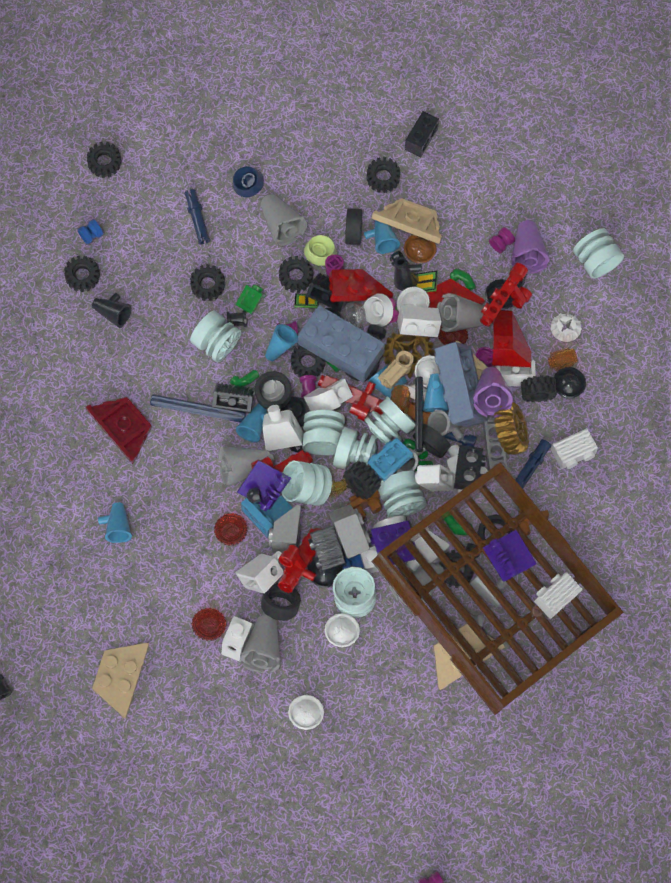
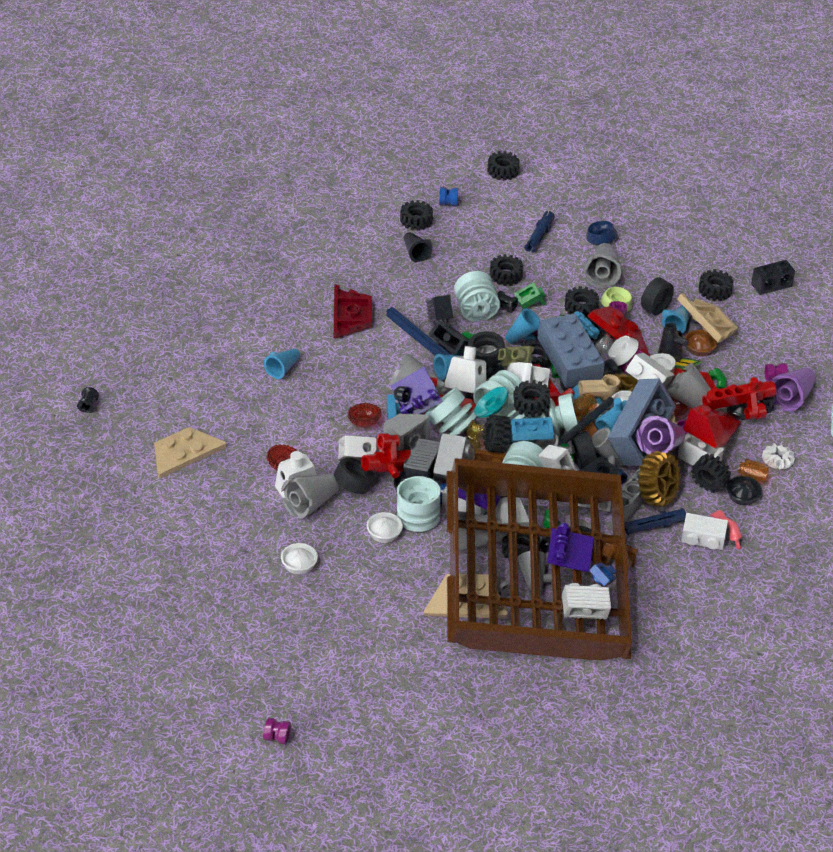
camera: 40 degrees right, 25 degrees down
(199, 374) = (439, 309): none -> black brick
(307, 383) = (515, 354): none -> olive hips
(326, 303) = (591, 330): none -> dark azure axle
(332, 458) = (491, 402): none -> teal dish
(367, 418) = (531, 406): none -> black tyre
(554, 563) = (602, 574): none -> blue plate
(598, 435) = (735, 533): none -> coral piece

